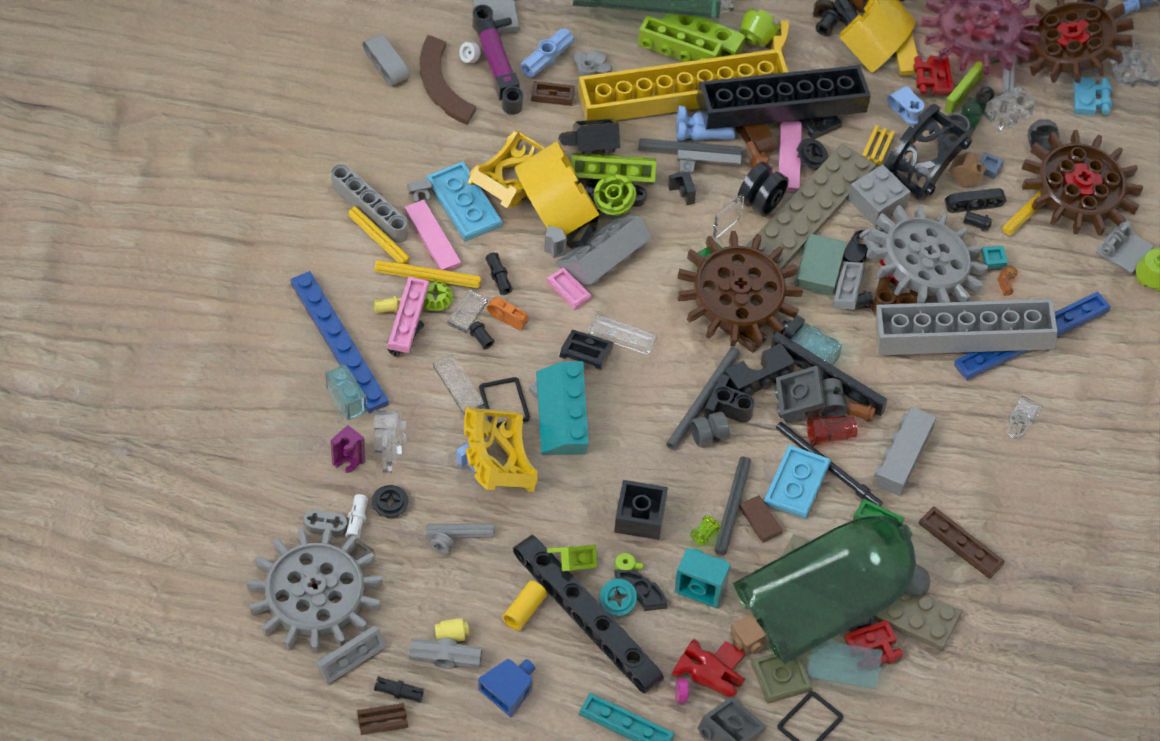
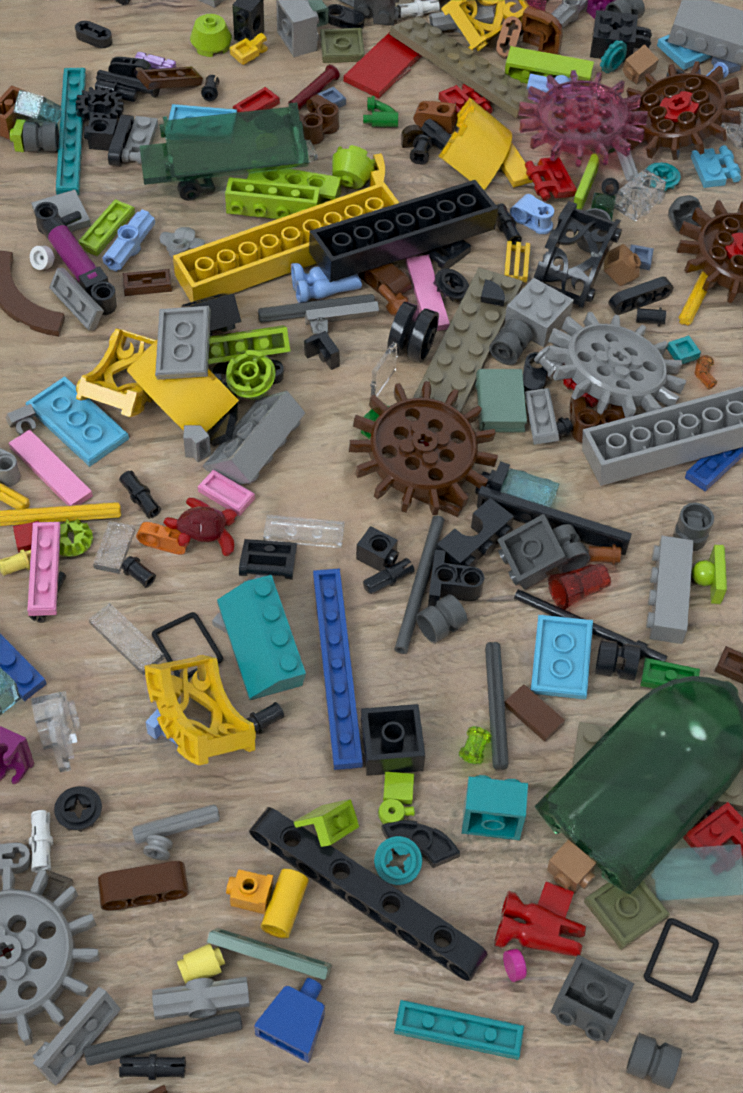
camera: 15 degrees left, 0 degrees up
(398, 285) = (23, 536): none -> red tile
(412, 673) = (163, 1038): none -> dark grey axle
(423, 567) = (142, 885): none -> reddish brown beam
(489, 96) = (76, 299): none -> light grey tile
(503, 636) = (270, 953): none -> sand green tile
(505, 594) = (254, 899): none -> light orange brick
(531, 36) = (106, 227): none -> lime tile
(543, 310) = (204, 525): none -> animal
(549, 470) = (266, 717): none -> black pin
(564, 156) = (183, 342): none -> light grey tile
(613, 17) = (192, 188): none -> black plate
(616, 446) = (337, 670): none -> blue plate
(636, 546) = (399, 787): none -> lime tile
(673, 356) = (373, 541): none -> black brick
(679, 386) = (388, 576): none -> black axle
(832, 491) = (607, 660): none -> black wheel
(843, 170) = (492, 293): none -> black tile
(845, 216) = (511, 341): none -> dark grey wheel
(880, 108) = (507, 224): none -> black pin
(941, 446) = (712, 574): none -> lime tile
(943, 405) = (694, 524): none -> dark grey wheel
(1043, 89) = (666, 170): none -> teal gear

